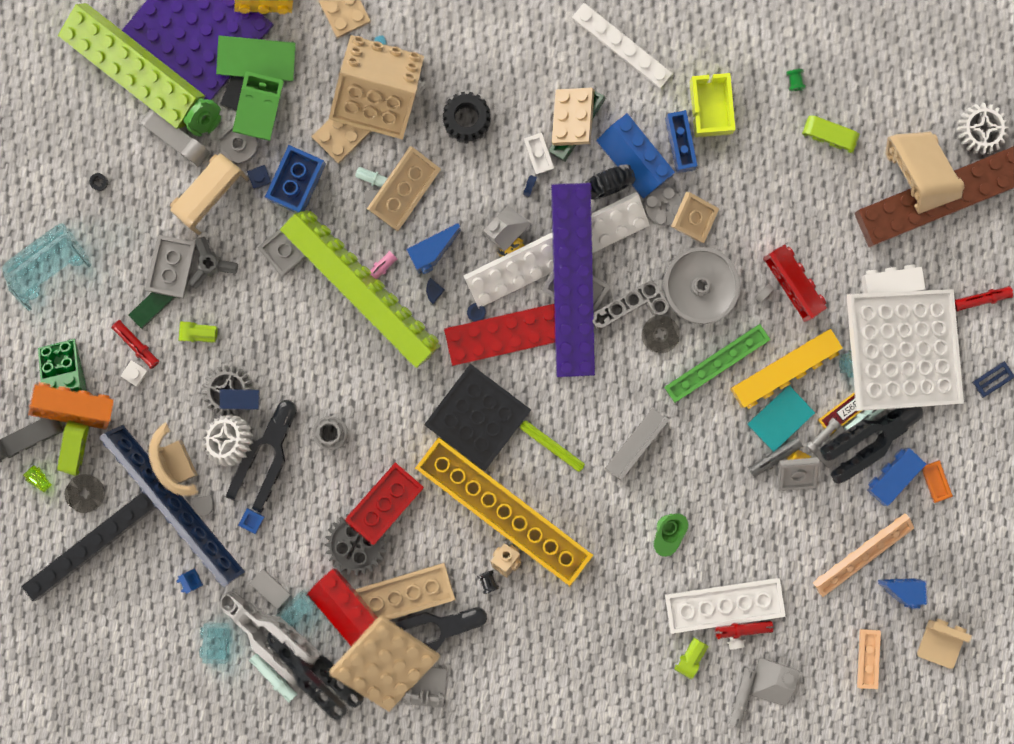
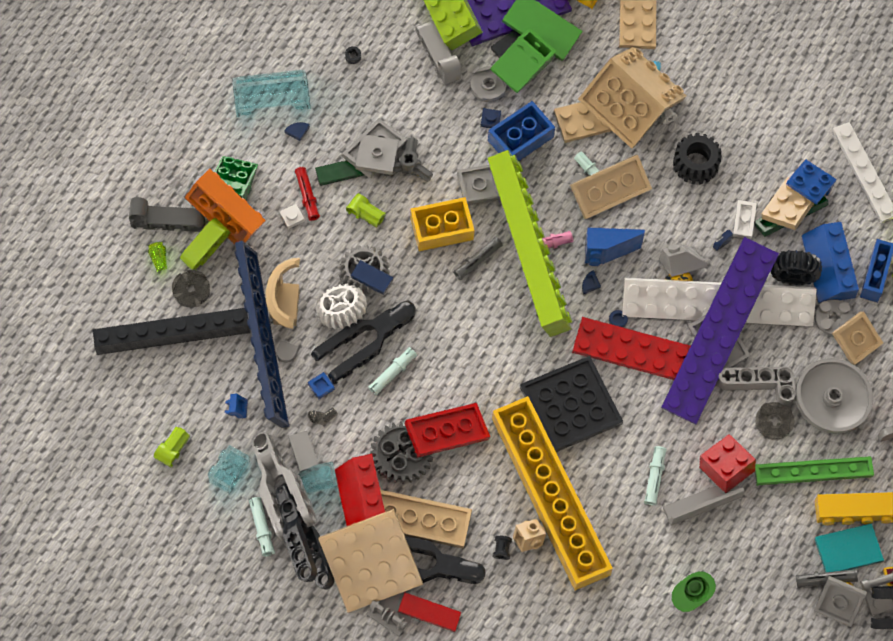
camera: 30 degrees right, 20 degrees down
(91, 285) = (297, 130): none -> dark blue tile
(154, 651) = (169, 451): none -> lime piece
(177, 275) = (377, 154): none -> light grey plate
(202, 108) = (470, 38): bright green plate -> none
(206, 191) = (441, 99): tan windscreen -> none
(268, 550) = (320, 417): none -> clear smoke arm
(272, 310) = (442, 224): none -> yellow brick
(306, 472) = (398, 365): none -> light aqua pin
(318, 434) = (431, 356): light grey piece -> none
(322, 323) = (463, 270): none -> dark grey pin
(457, 673) = (429, 612): none -> red tile
(552, 446) = (625, 464): lime axle -> none
(581, 87) = (811, 182): none -> blue bracket
(584, 443) = (656, 468): none -> light aqua pin
(641, 400) = (727, 463): none -> brick

